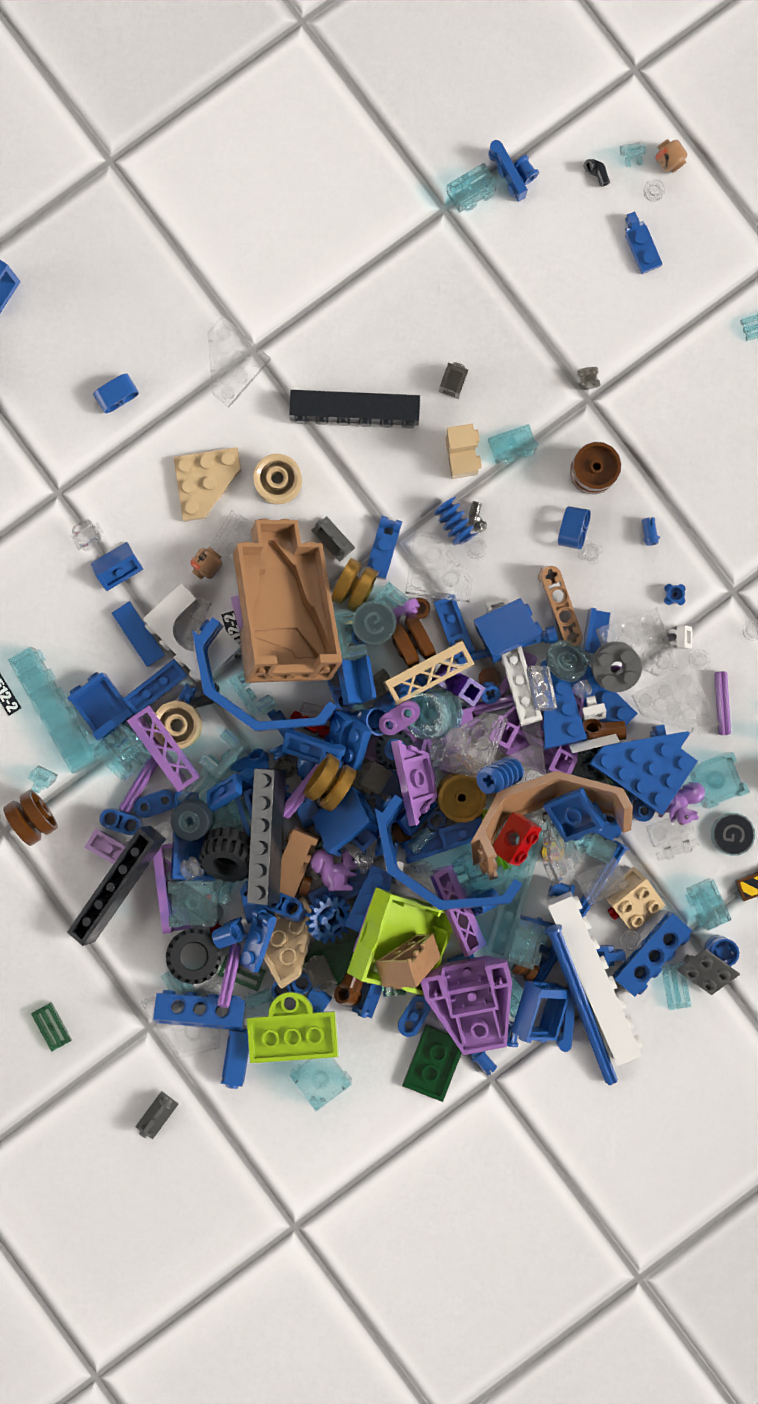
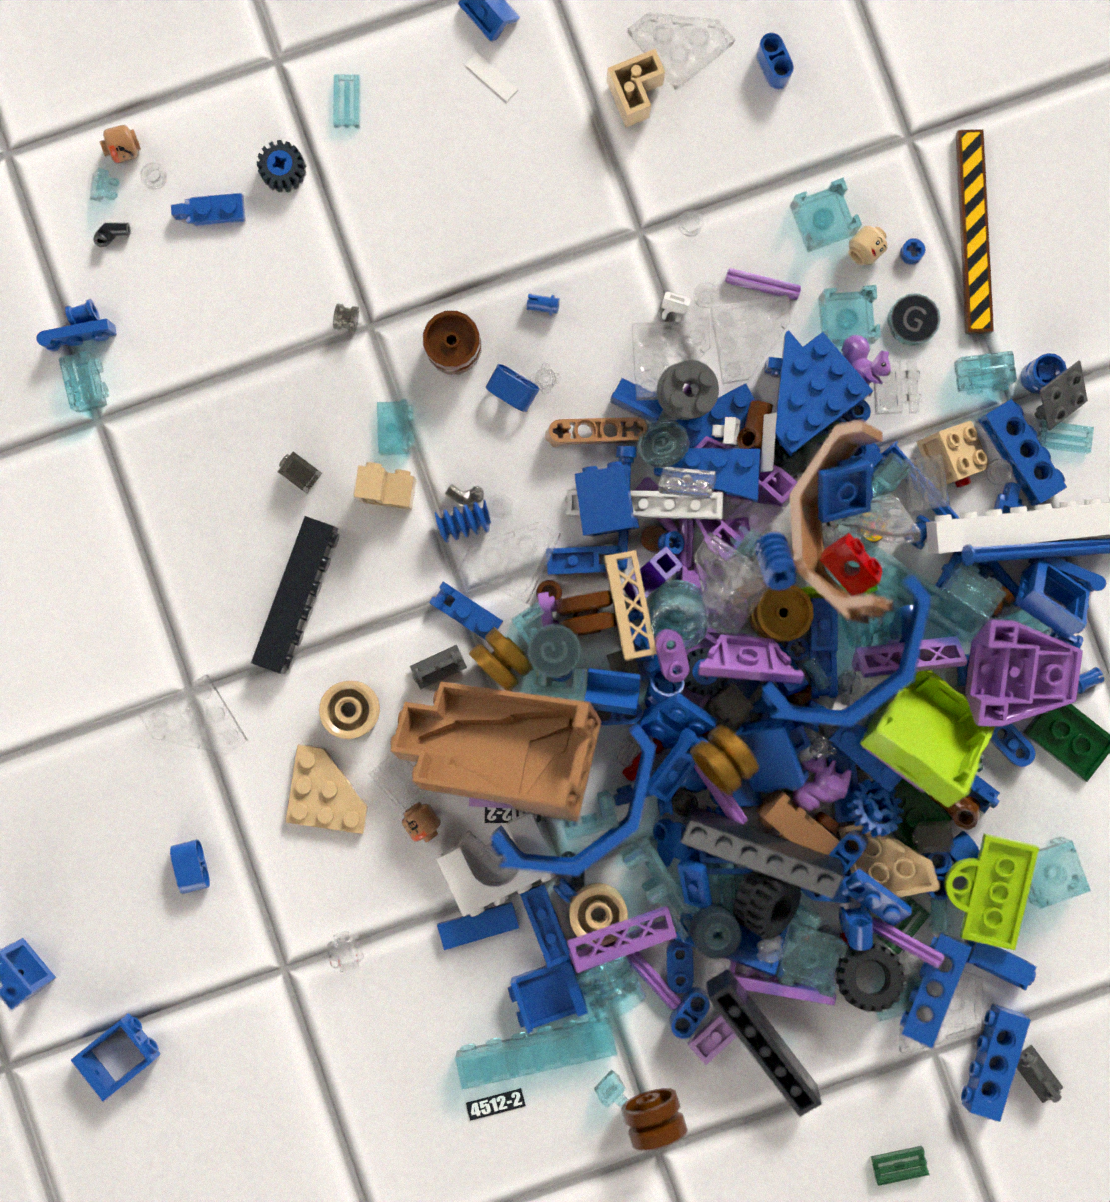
camera: 70 degrees left, 0 degrees up
(116, 566) = (391, 928): blue panel -> none
(123, 1084) = (993, 1101): none -> blue brick
(409, 962) = (957, 732): medium nougat wedge -> none
(505, 750) = (747, 545): none -> clear light blue tile
(582, 688) = (700, 437): clear hinge -> none
(679, 590) = (619, 292): blue plate -> none
(690, 295) = (286, 174): none -> black wheel

